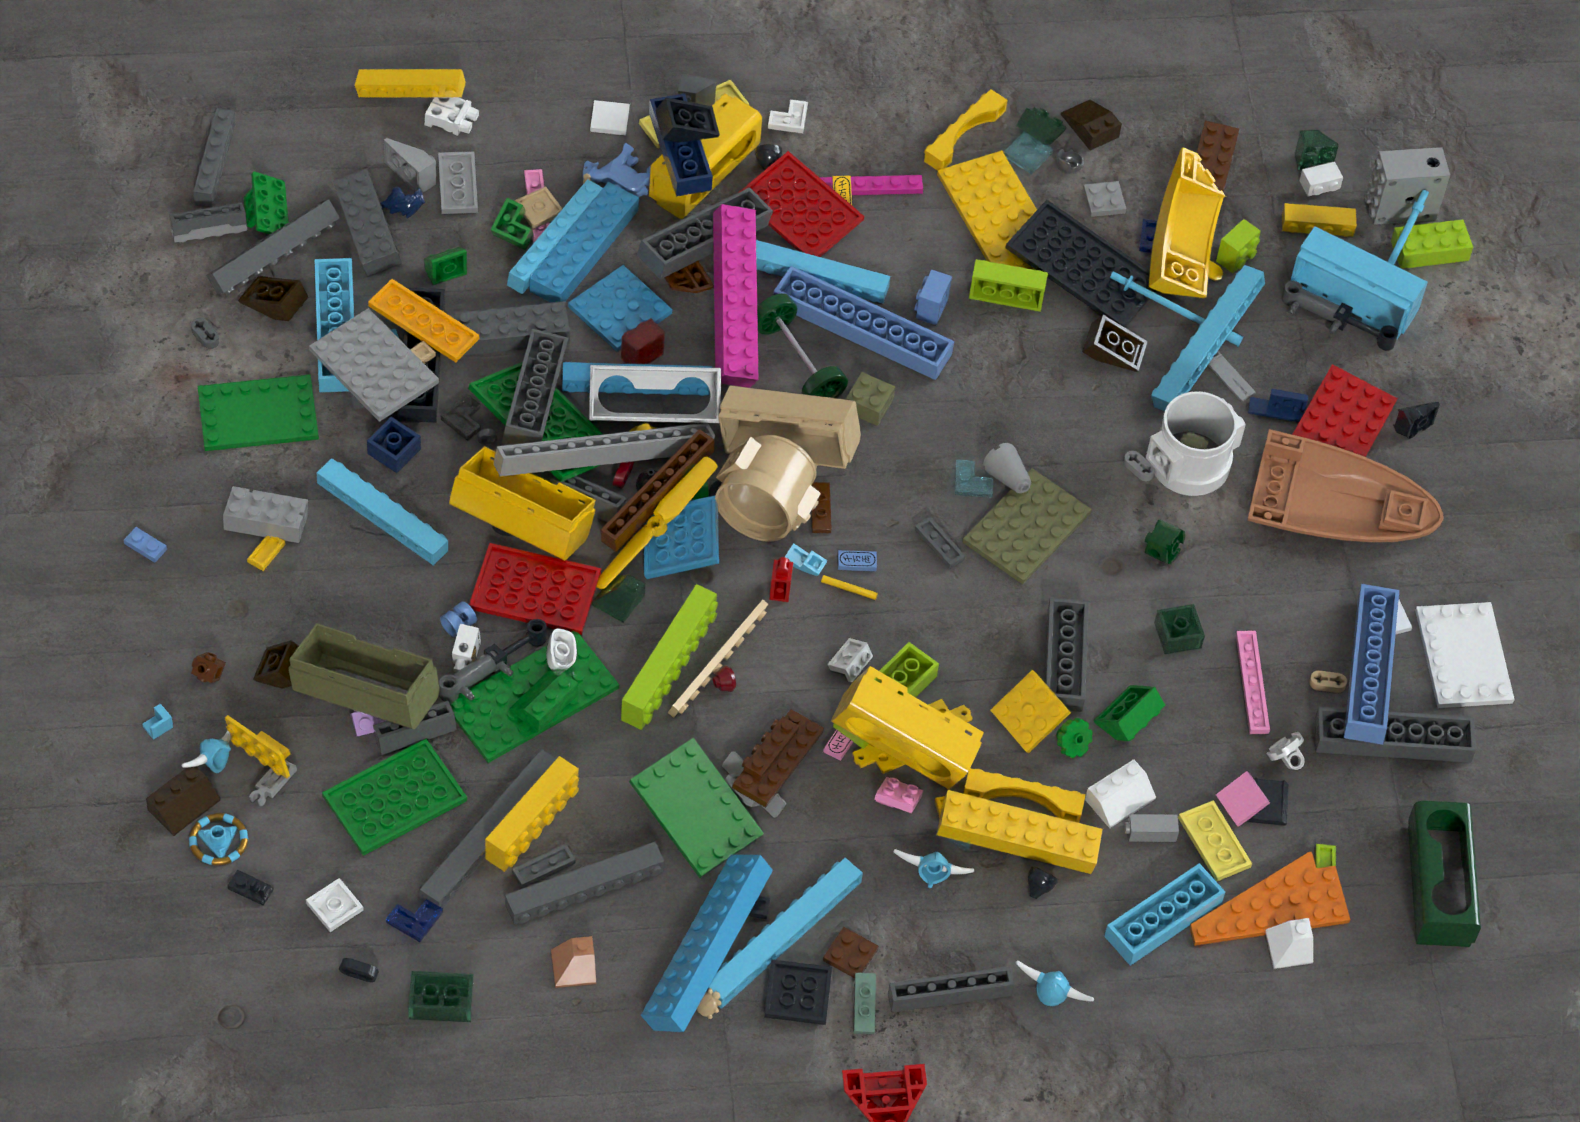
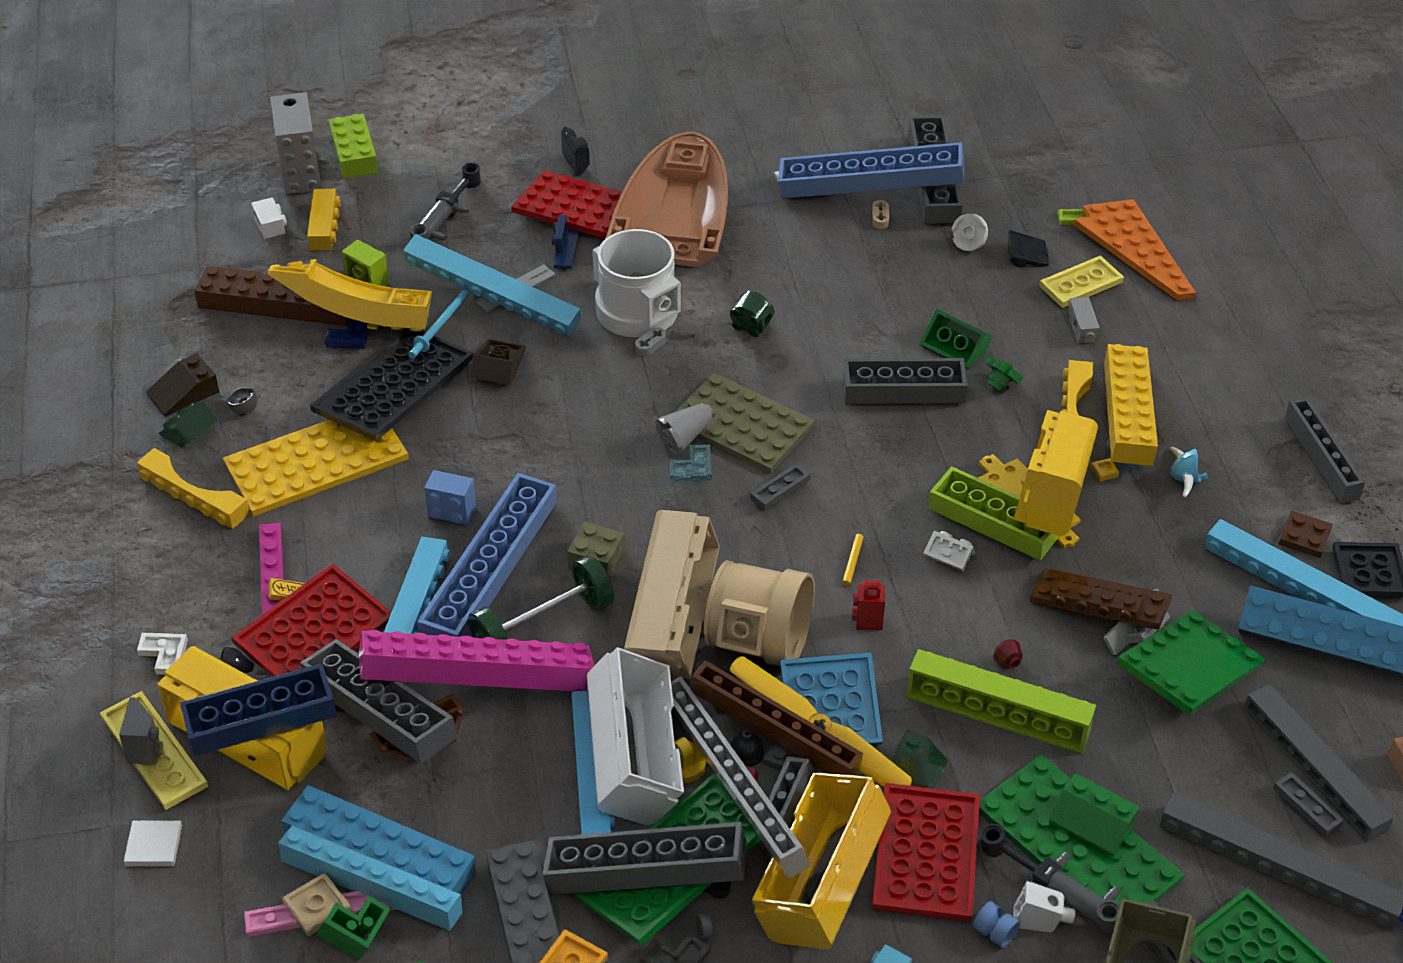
camera: 90 degrees left, 10 degrees down
(532, 814) = (1256, 806): yellow brick -> none
(561, 650) = (1025, 802): white piece -> none
(618, 306) = (475, 804): dark azure plate -> none
(619, 173) = (260, 817): medium blue animal -> none
(643, 343) = (546, 764): clear red brick -> none
(686, 121) = (238, 690): black slope -> none
(715, 664) = (949, 647): tan plate -> none
(806, 562) = (826, 598): medium azure slope -> none
(838, 745) = (1058, 558): bright pink tile -> none
(857, 560) = (816, 554): medium blue tile -> none
(864, 1003) = (1361, 517): sand green plate -> none
(898, 795) = (1112, 501): bright pink plate -> none
(1008, 285) = (428, 436): lime brick -> none
(1028, 152) = (223, 438): clear light blue plate -> none
(1030, 711) = (983, 401): yellow plate -> none
(1040, 882) = (1173, 392): black helmet -> none
(1053, 986) = (1286, 379): medium azure helmet -> none
(1104, 199) = (292, 376): light grey plate -> none
(1120, 794) = (1048, 344): white slope -> none
(1164, 914) = (1180, 307): medium azure brick -> none
(1179, 629) = (853, 303): clear green brick -> none
(1242, 798) = (1033, 260): bright pink tile -> none
(1252, 682) = (896, 259): bright pink plate -> none
(1290, 943) = (1172, 230): white slope -> none
(1314, 149) = (236, 216): clear green slope -> none
(1358, 280) = (412, 182): medium azure piece -> none
(1417, 208) = (329, 132): medium azure bar -> none
(1426, 860) = (1078, 136): dark green piece -> none
(1464, 655) = (827, 132): white plate -> none

